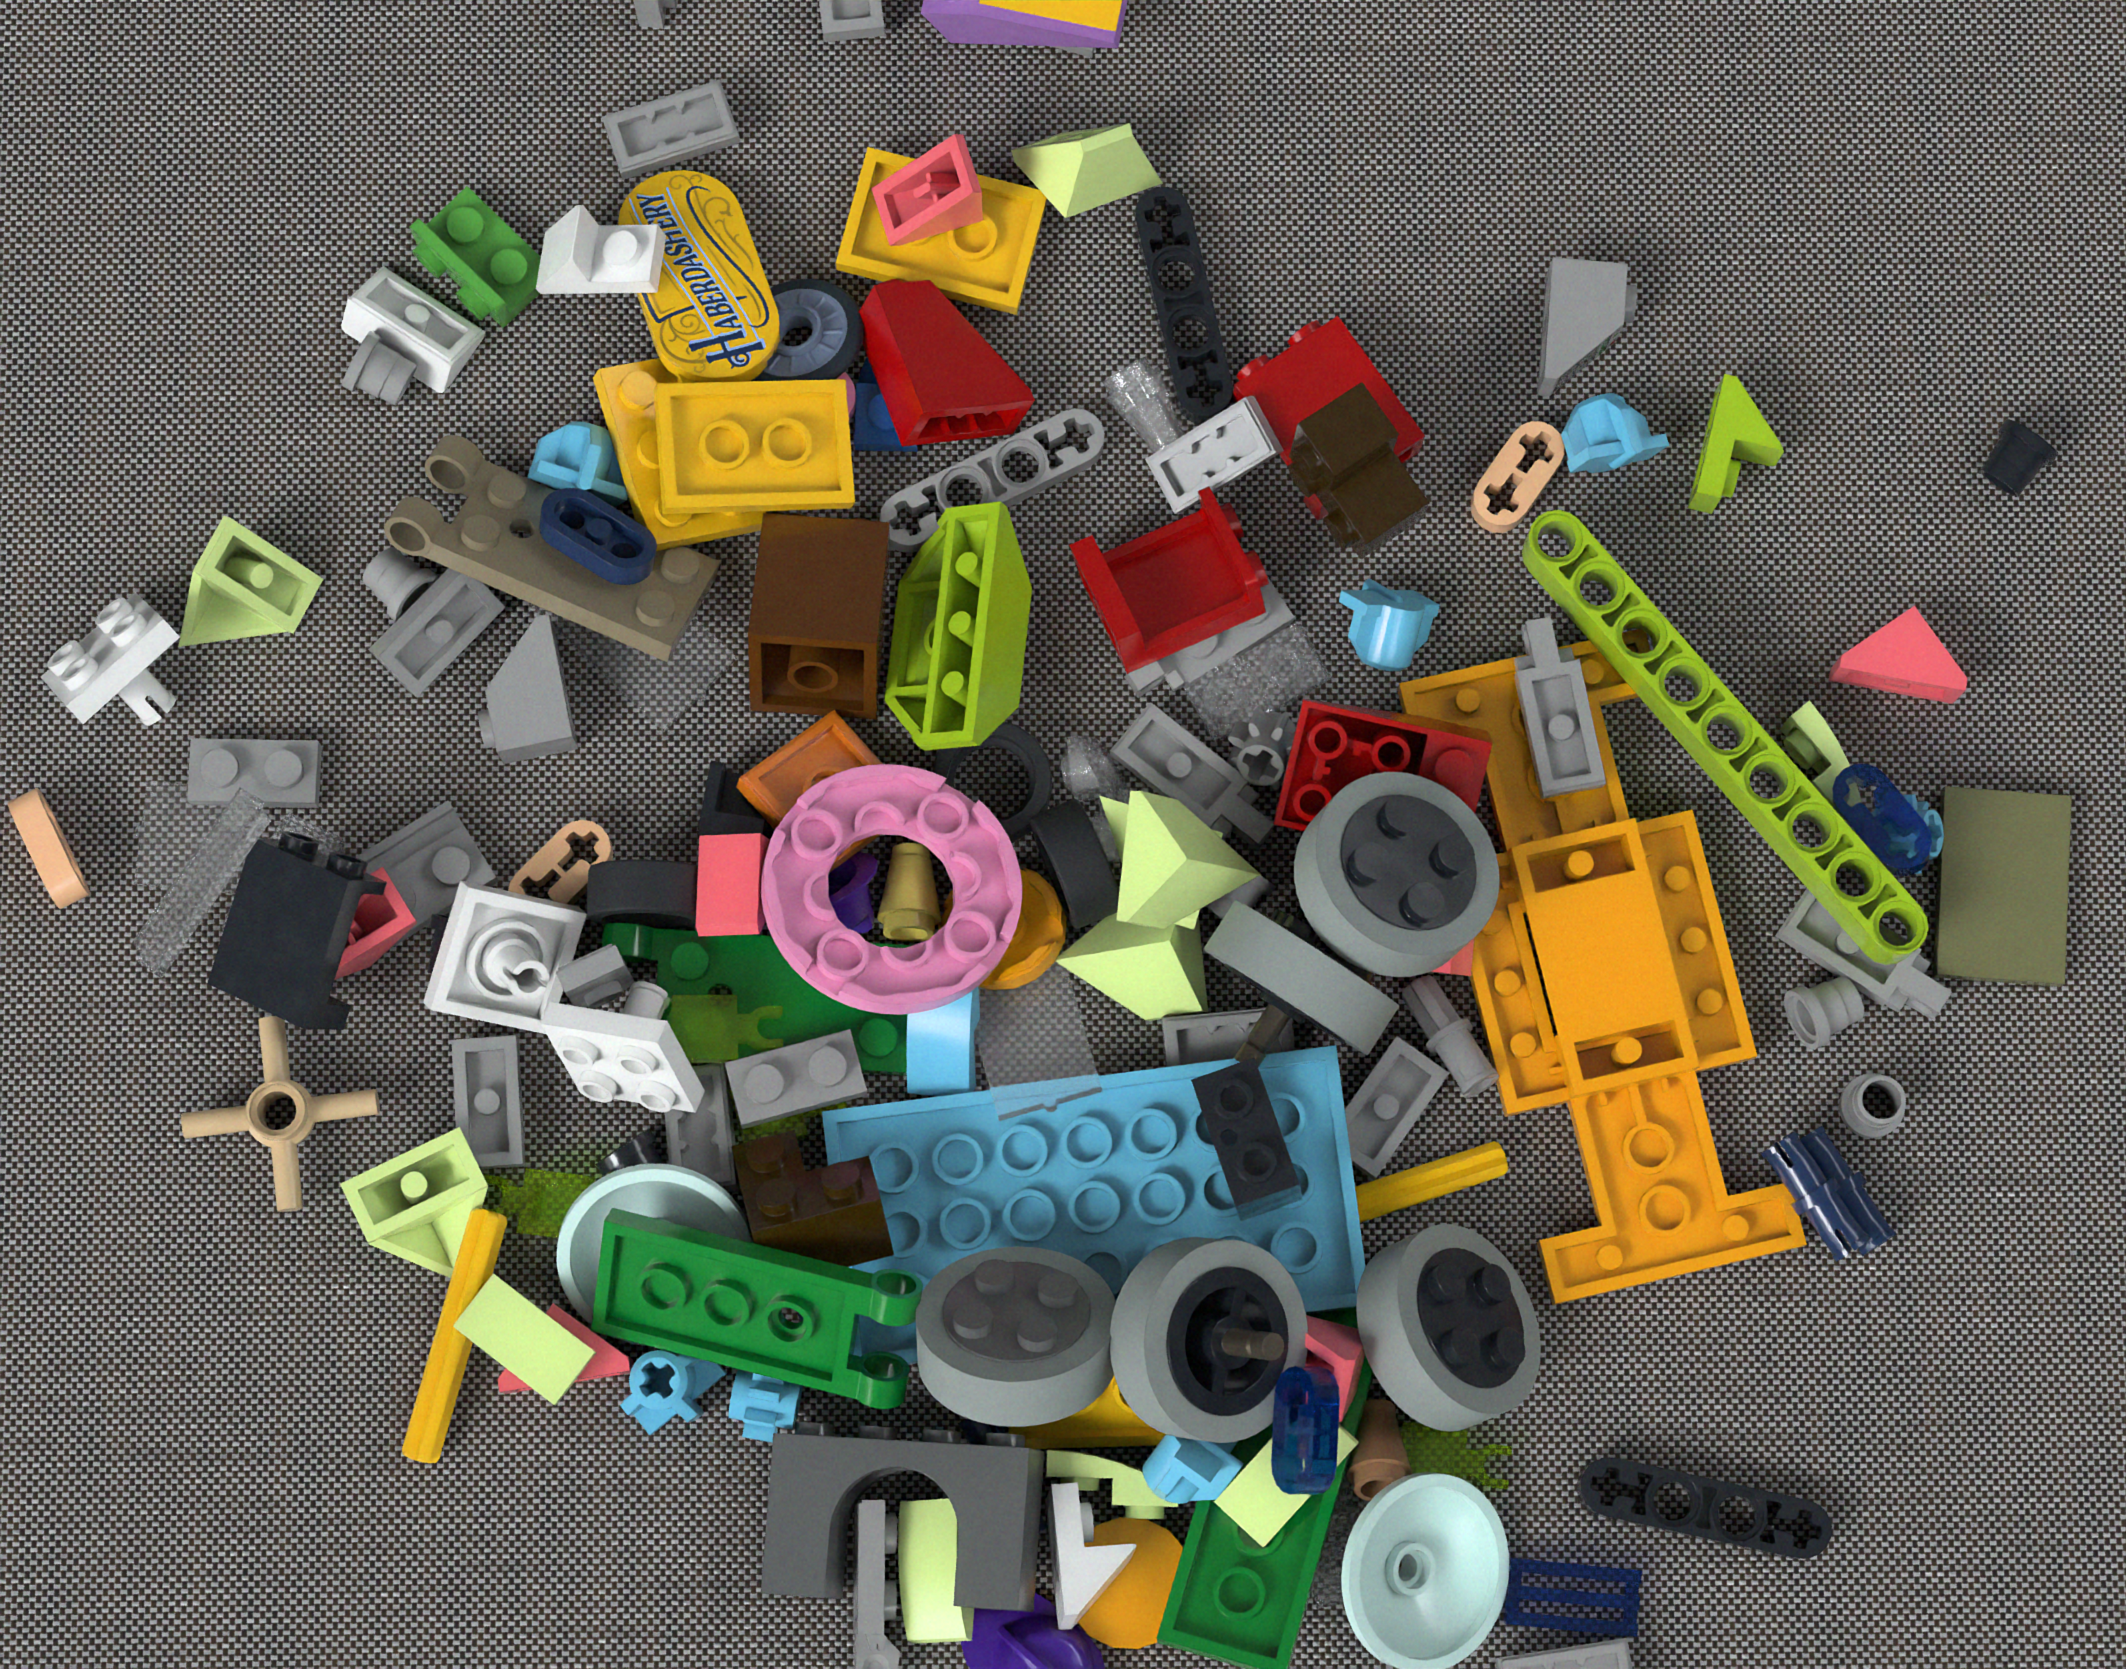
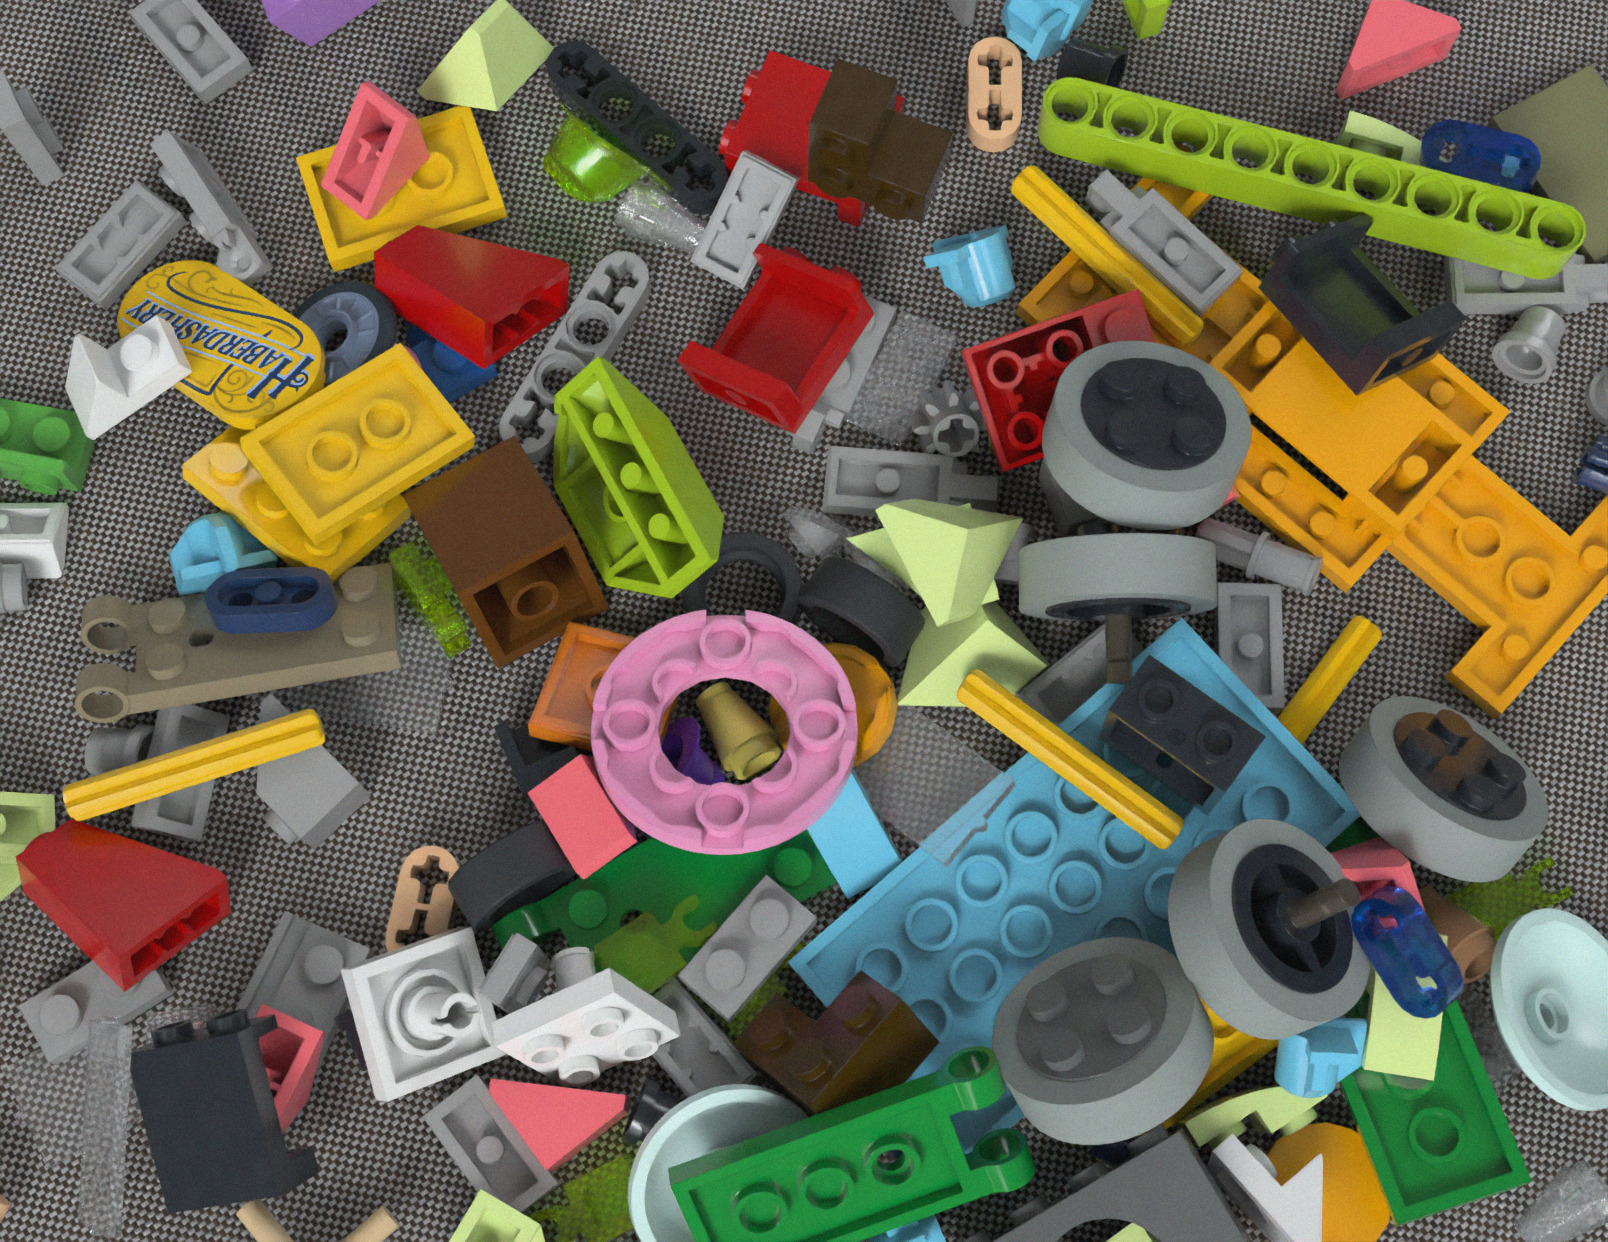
camera: 30 degrees left, 5 degrees down
(325, 704) = (121, 897): none -> red slope
(450, 635) = (193, 764): none -> yellow axle
(554, 1114) = (557, 1119): none -> coral slope
(731, 606) = (425, 587): none -> clear neon green plate
(770, 147) = (215, 211): none -> light grey hinge
(1117, 316) = (589, 165): none -> clear neon green piece
(1158, 1100) = (1070, 759): none -> yellow axle
(1501, 692) = (1106, 255): none -> yellow axle
(1619, 512) = (1093, 62): none -> black piece
(1675, 878) = (1352, 308): none -> black panel

